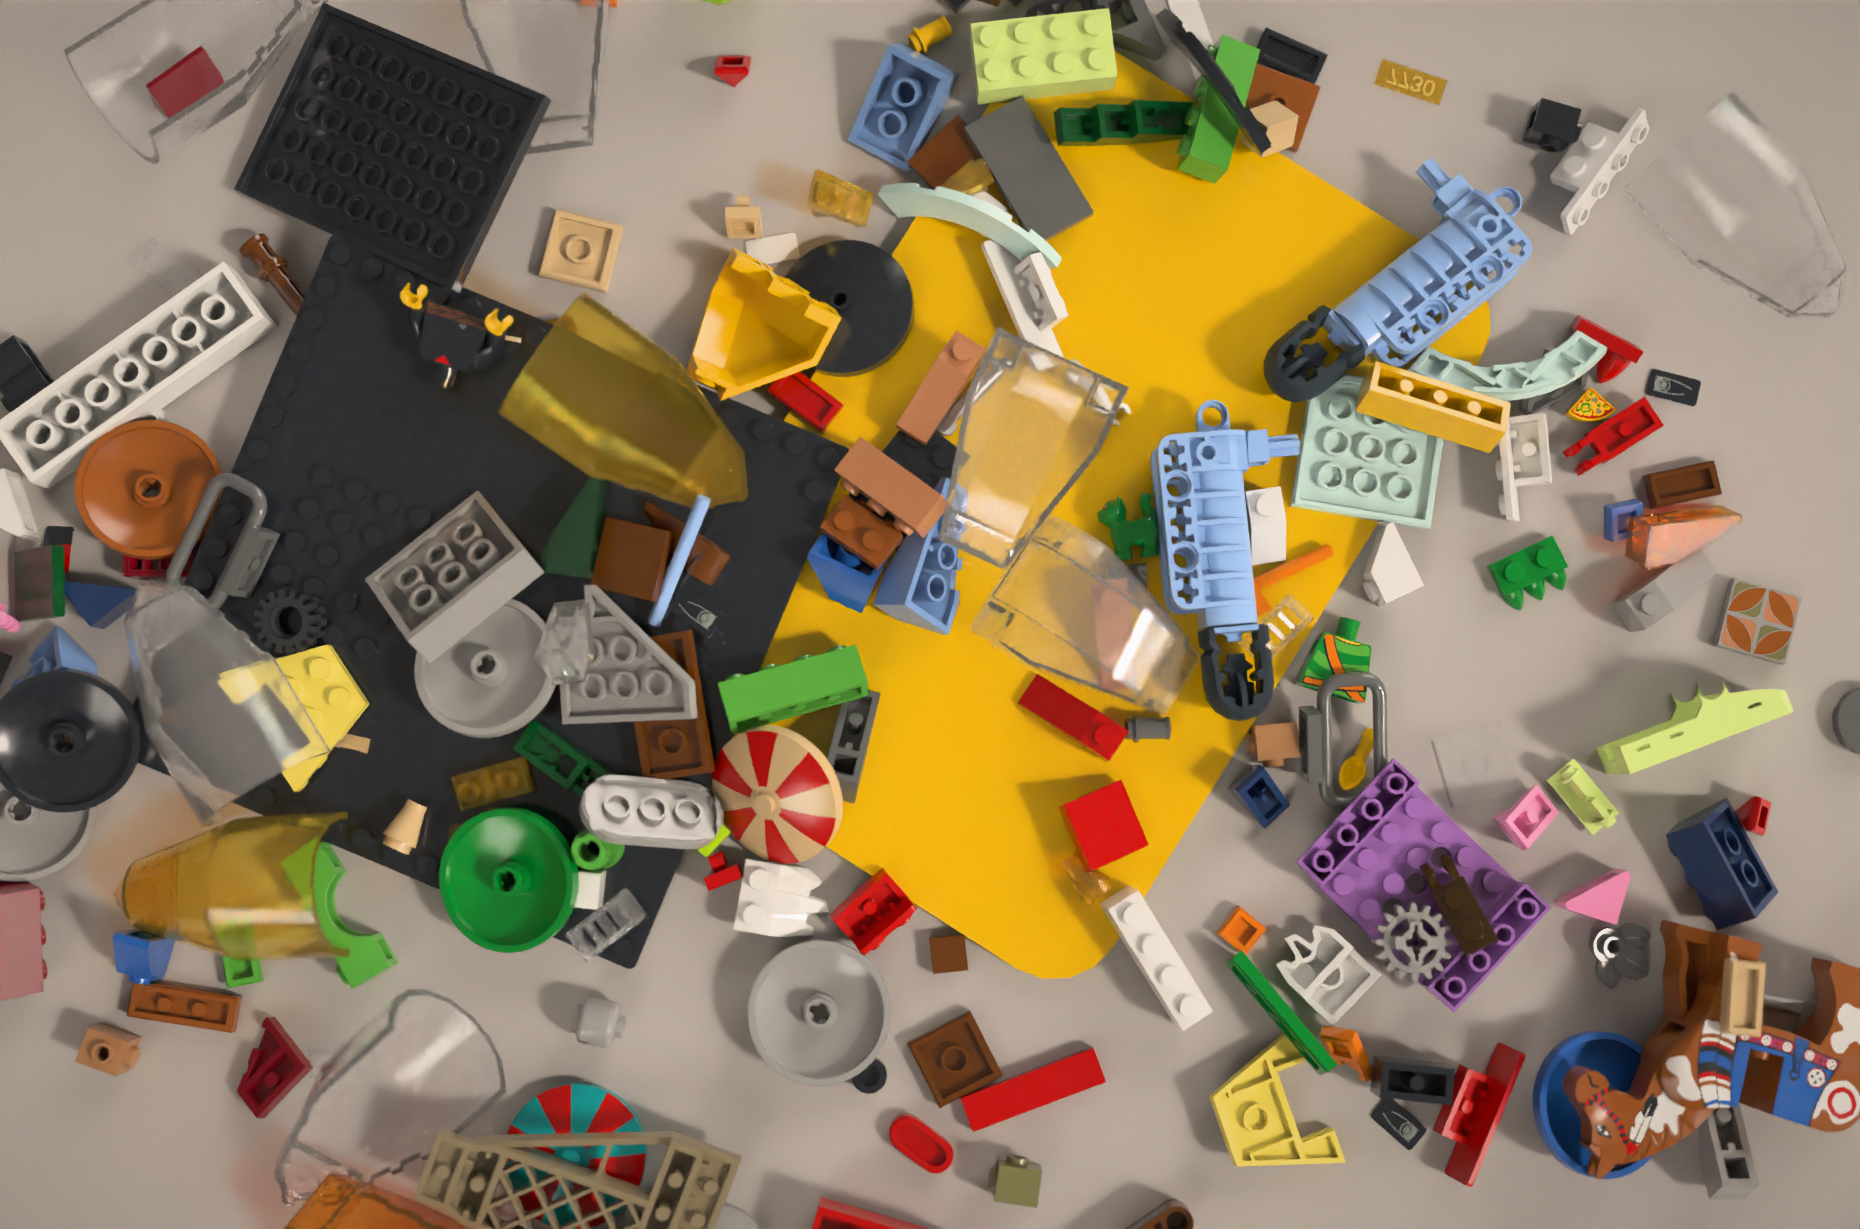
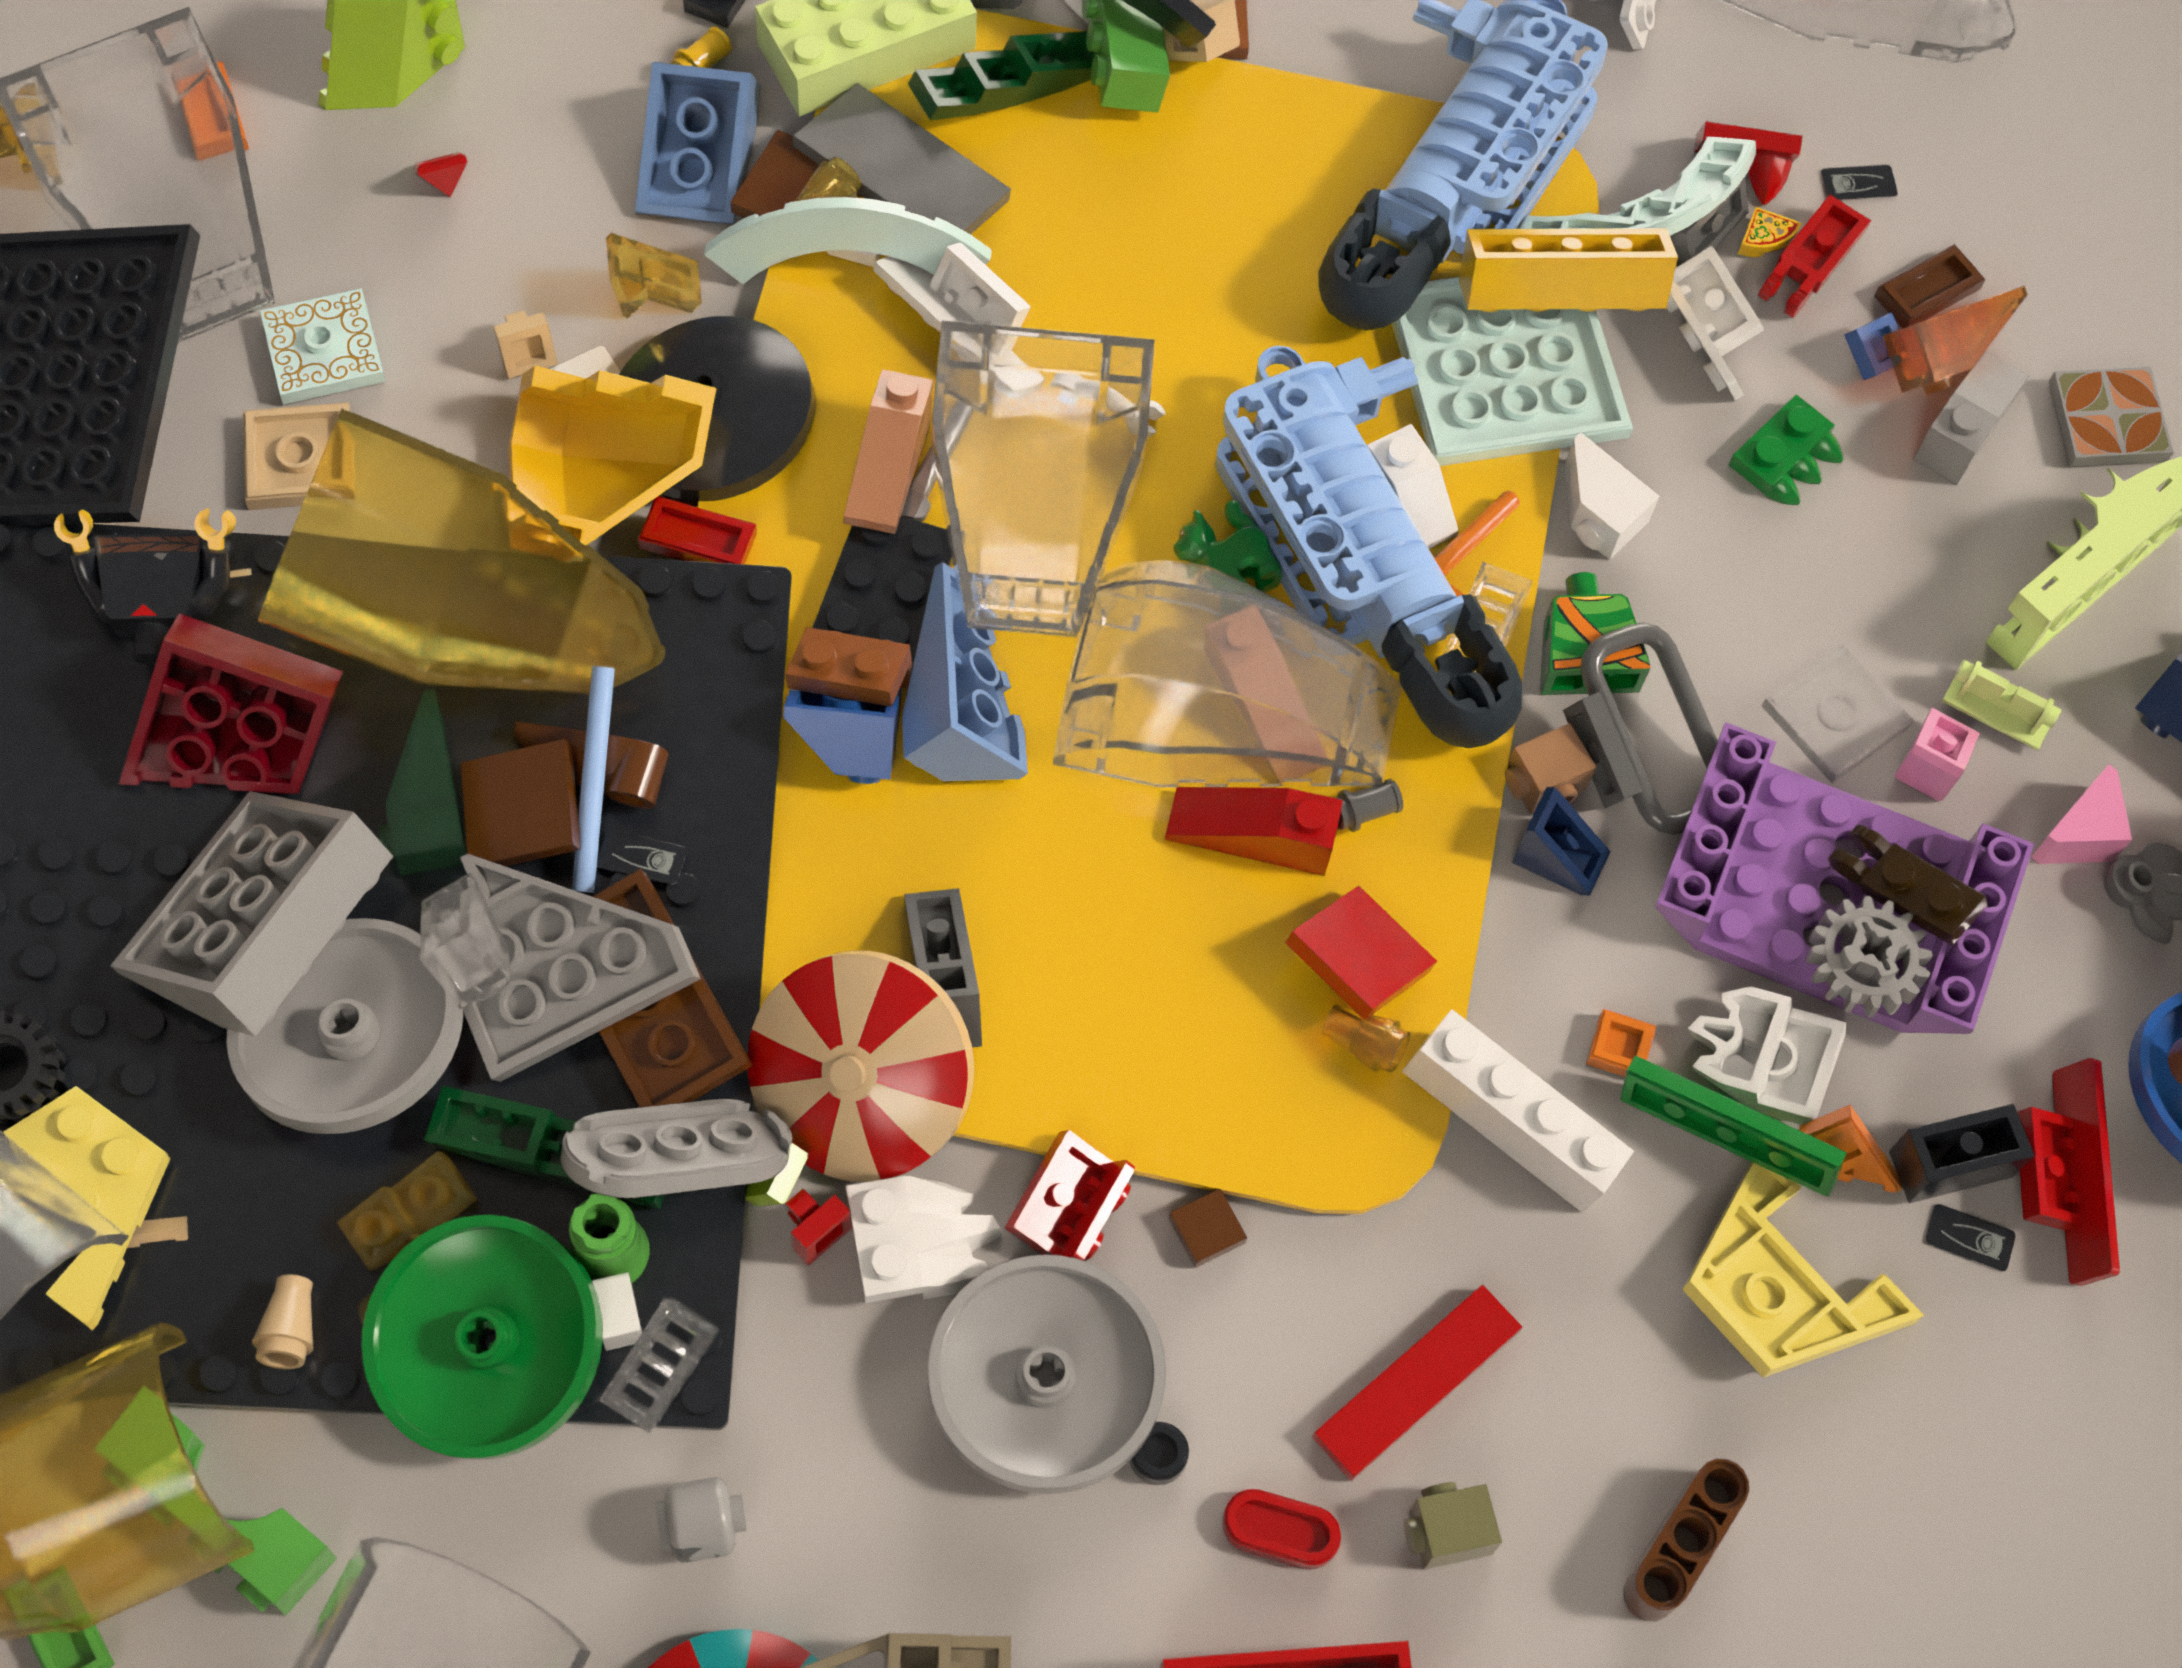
camera: 25 degrees left, 20 degrees down
(476, 441) = (229, 713): none -> dark red wedge
(619, 176) = (322, 346): none -> light aqua plate
(793, 688) = (829, 909): bright green brick -> none
(890, 489) = (870, 590): nougat brick -> none
(954, 1059) = (1280, 1381): reddish brown tile -> none
(1355, 768) = (1676, 771): yellow piece -> none

